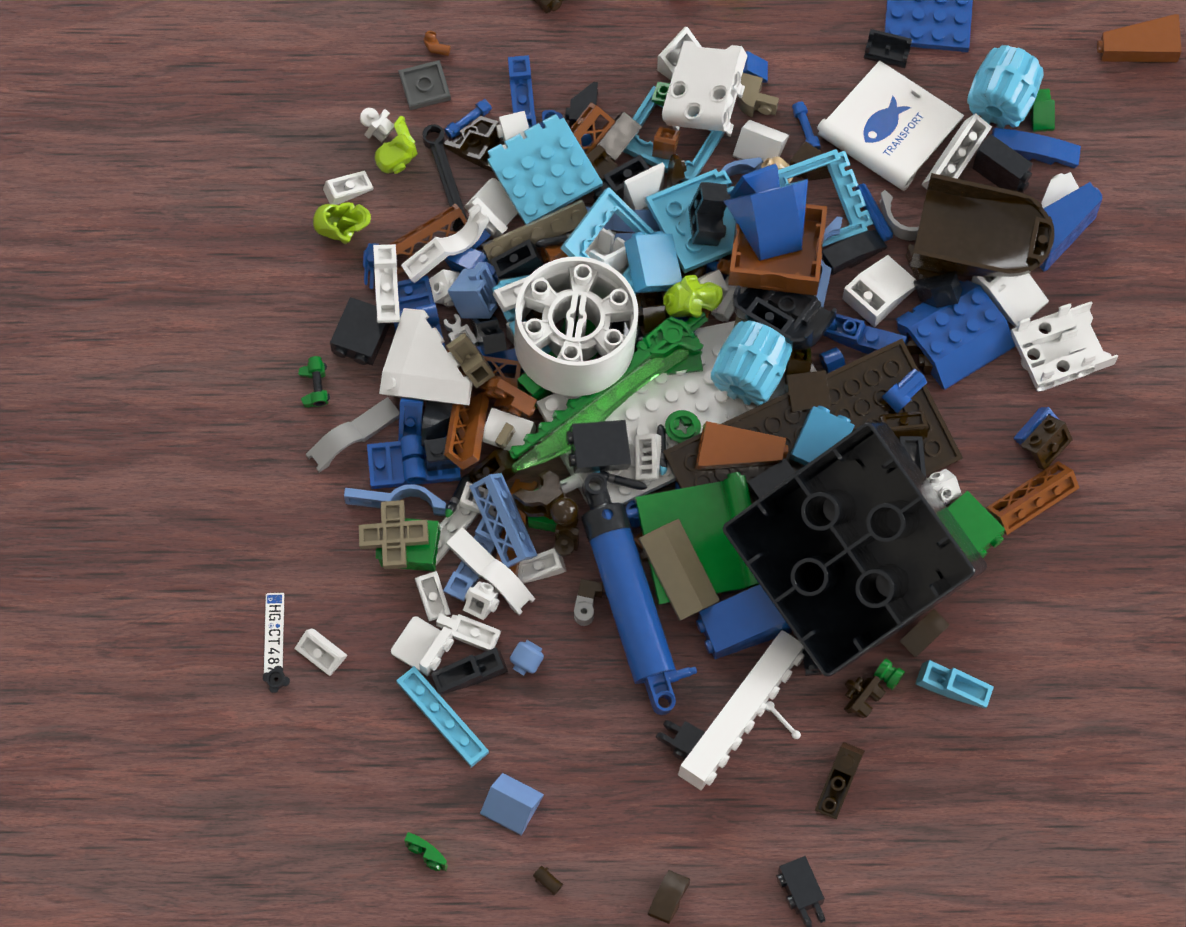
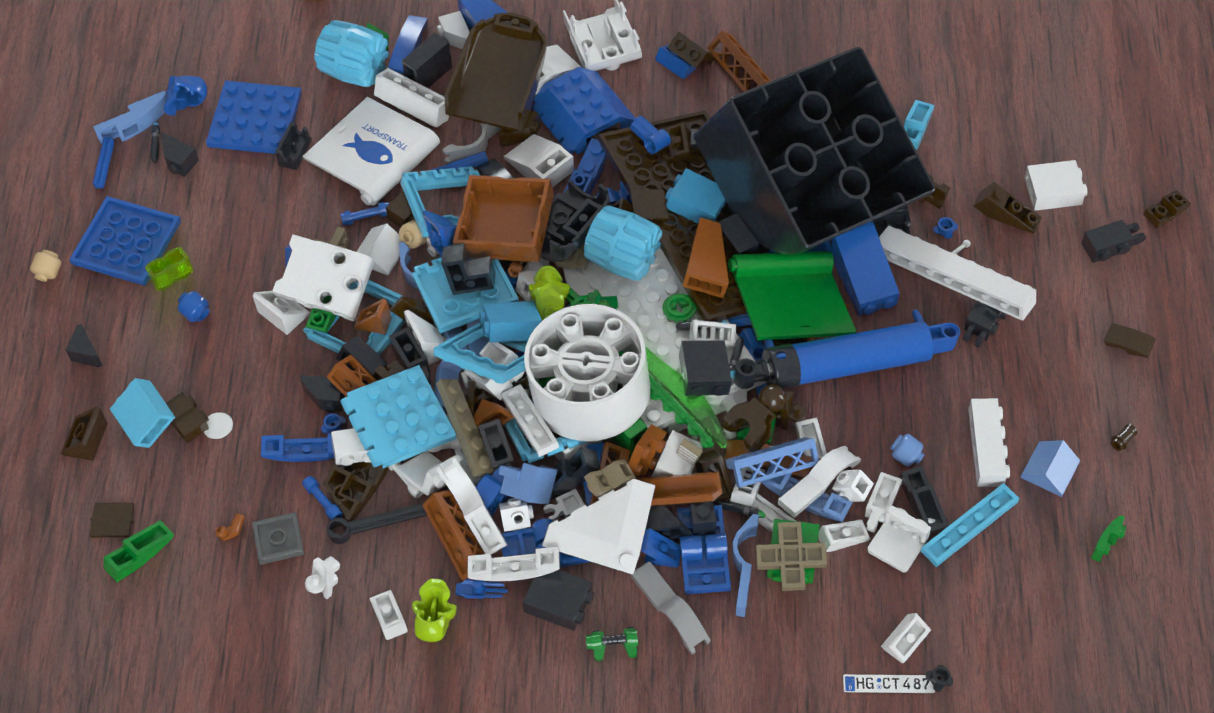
camera: 85 degrees left, 10 degrees down
(399, 152) = (357, 559): lime head -> none
(537, 738) = (988, 442): none -> white brick
(551, 22) = (219, 425): none -> white sticker
(551, 241) = (472, 395): black piece -> none
(585, 600) = (848, 401): leg -> none
(679, 569) = (824, 313): dark tan slope -> none
(772, 219) = (481, 213): blue wedge -> none
(812, 706) = (945, 223): none -> blue plate
(877, 834) = (1055, 185): none -> white brick
(939, 290) = (548, 112): black slope -> none

